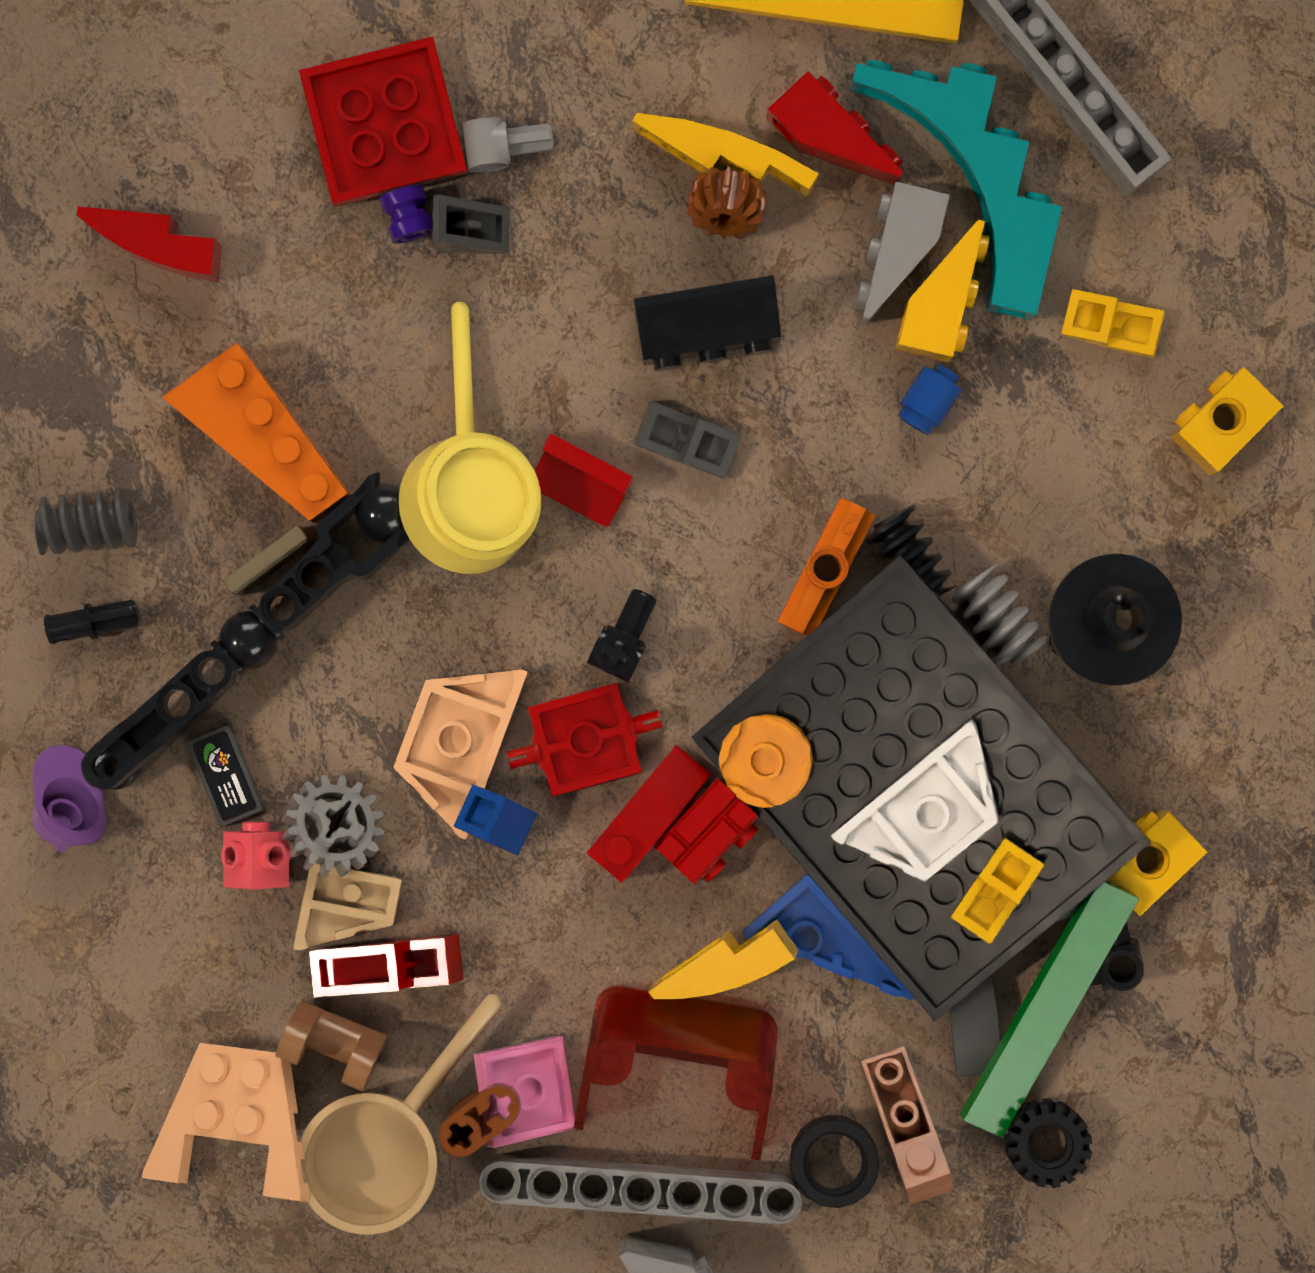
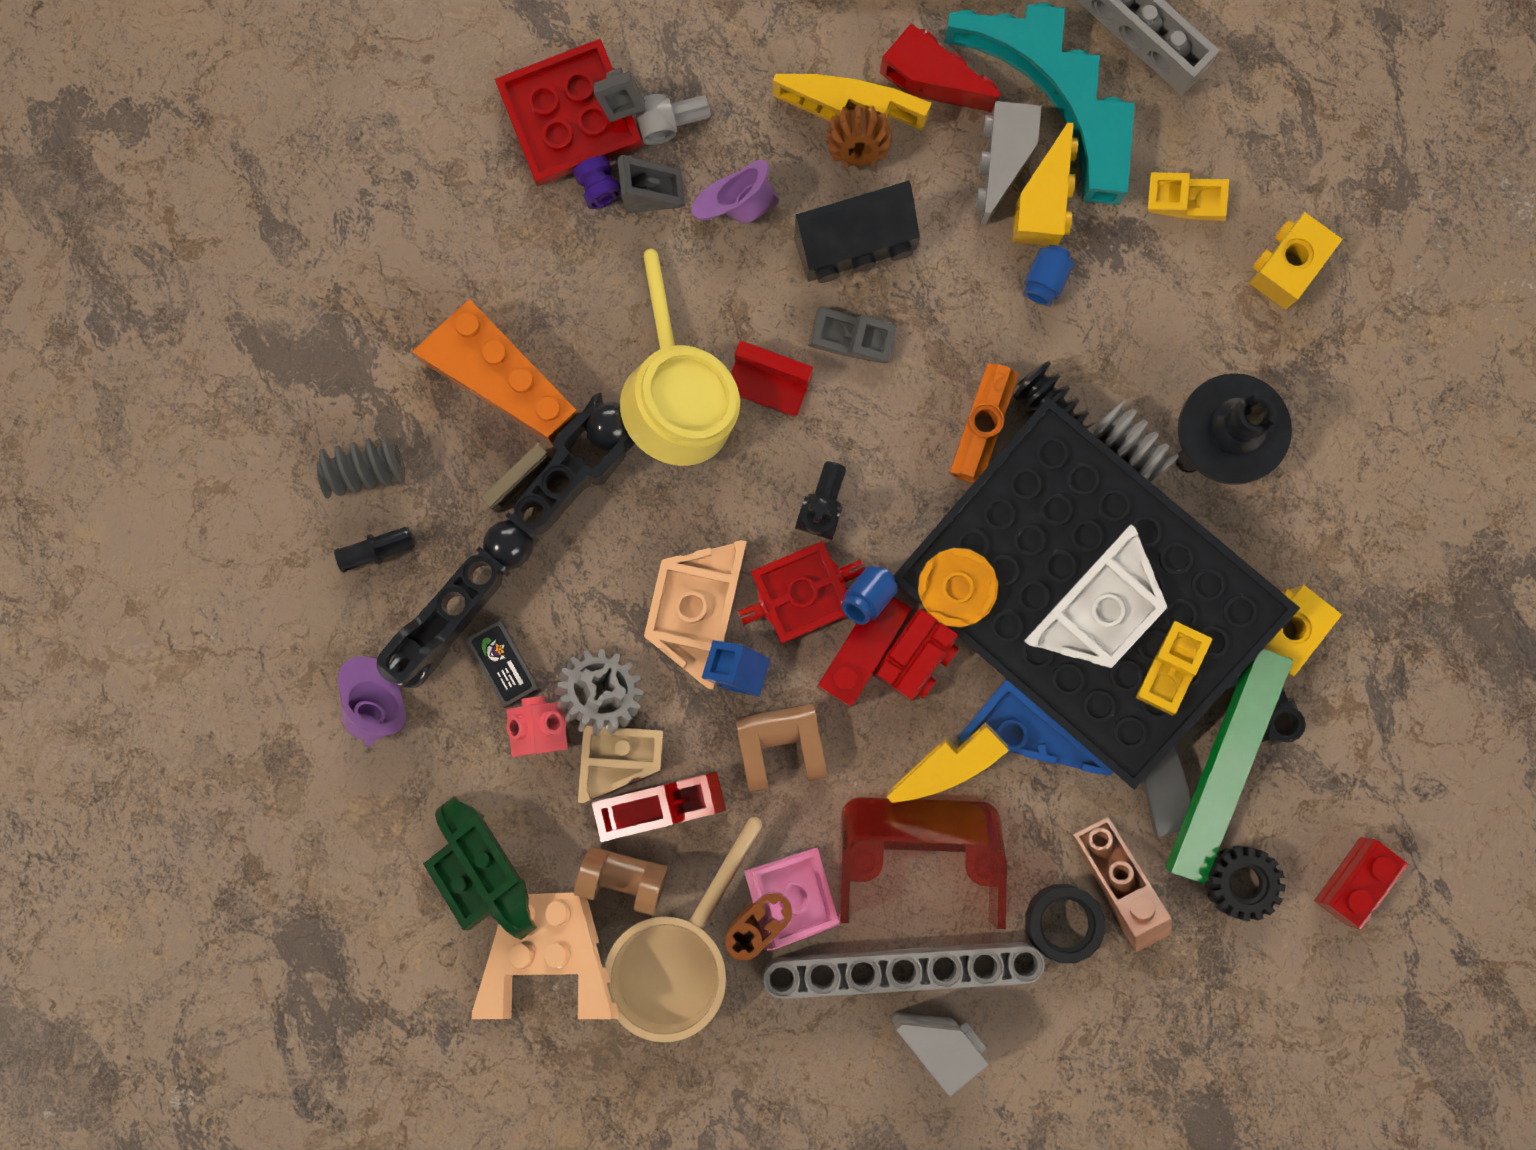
camera: 10 degrees left, 5 degrees down
(156, 241) = (392, 230): red slope -> none
(167, 1014) = (476, 873): none -> dark green plate
(445, 116) = (619, 95): none -> dark grey tile
(535, 895) = (779, 729): none -> medium nougat connector
(572, 252) = (739, 196): none -> medium lavender piece
(661, 755) = (869, 595): none -> blue brick
(1180, 1160) = (1361, 882): none -> red brick

